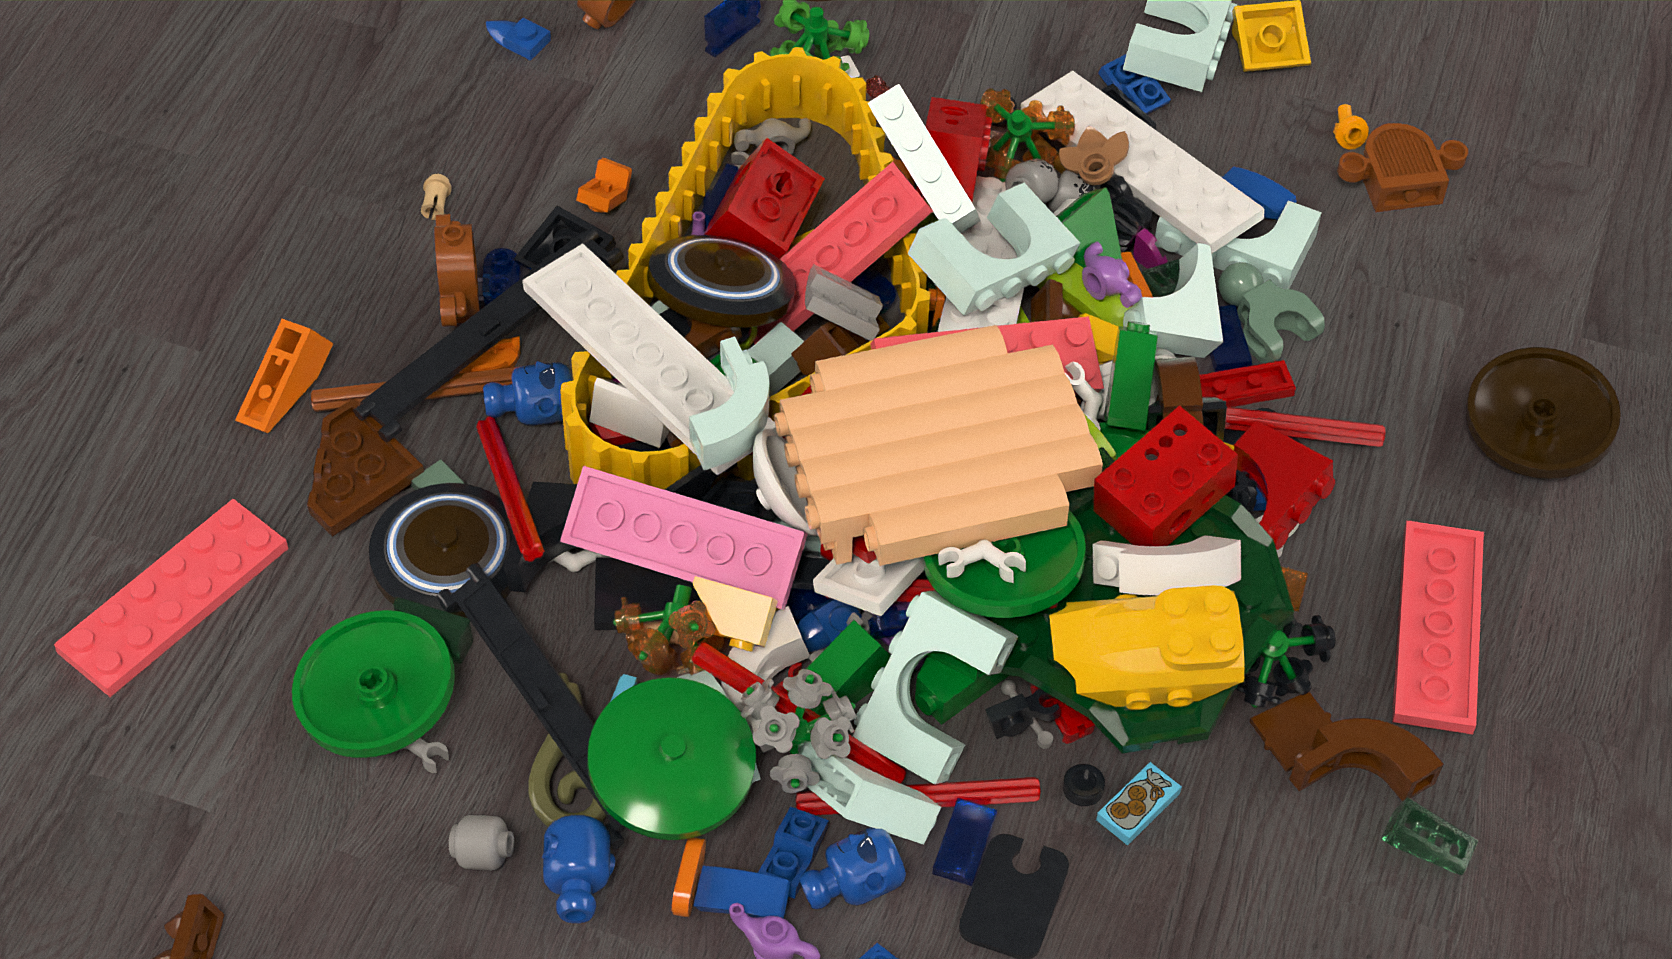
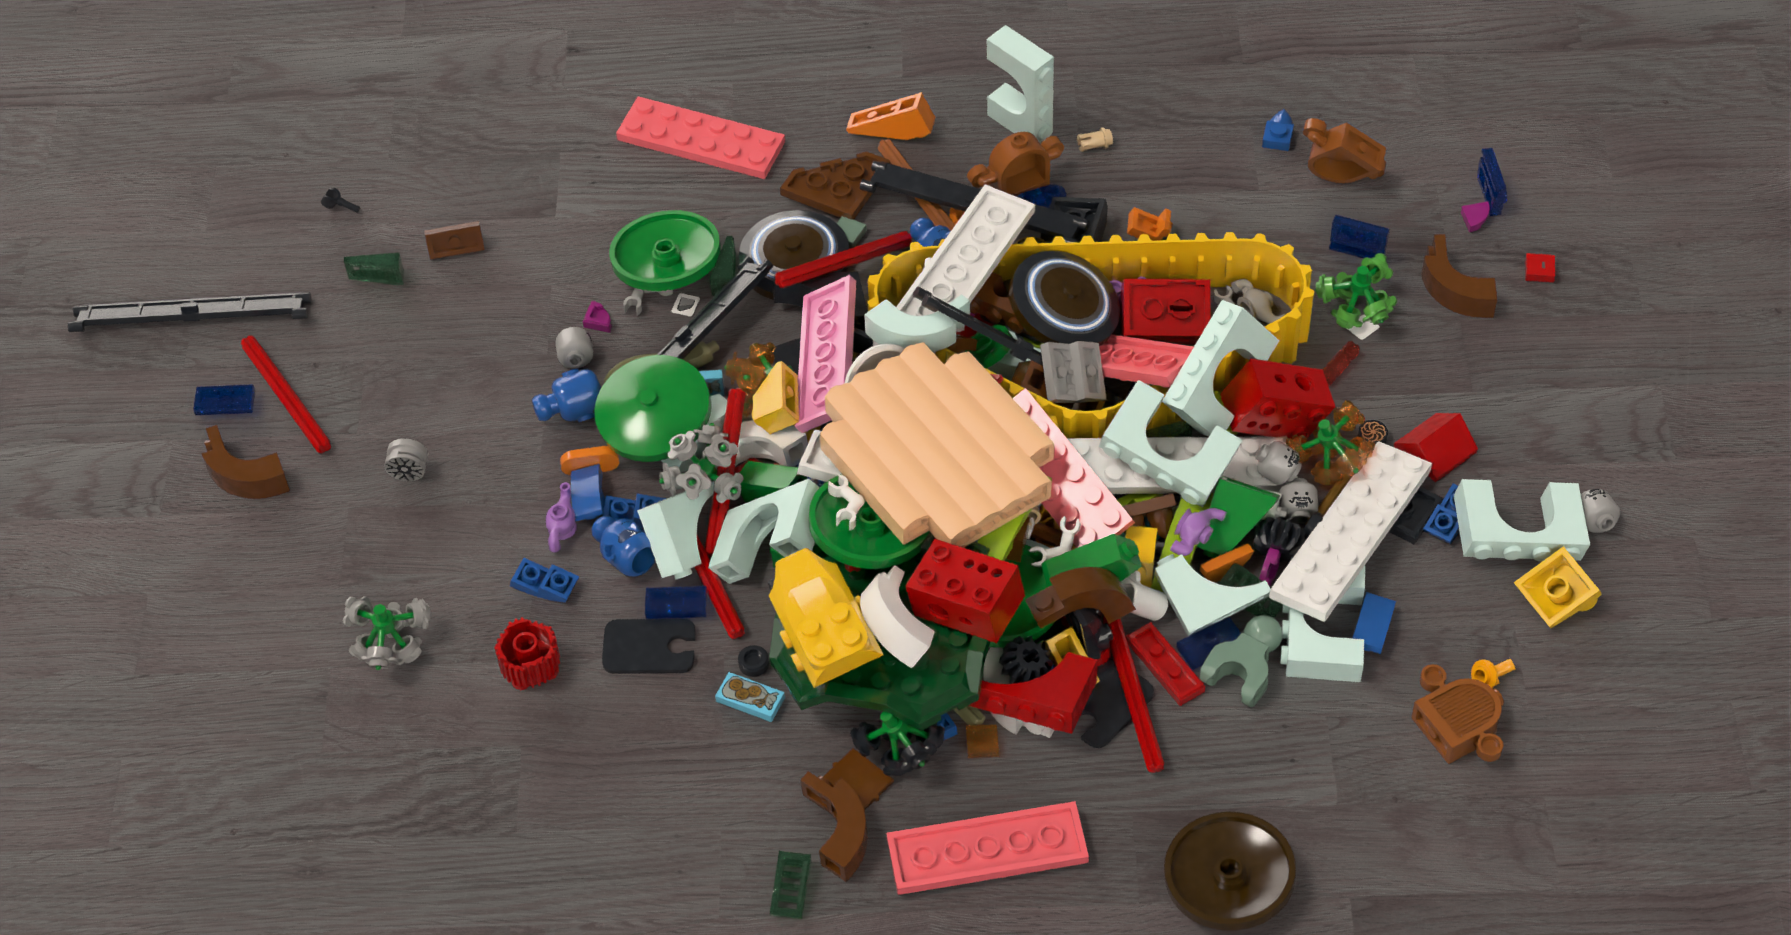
camera: 75 degrees right, 0 degrees up
(346, 176) = (1034, 73): none -> light aqua arch
(431, 806) = (597, 318): none -> magenta tile
(463, 699) = (685, 304): none -> white sticker
(800, 330) = (1019, 348): none -> black piece
(1031, 60) = (1440, 440): none -> red slope
(1093, 153) = (1329, 494): medium nougat plate -> none

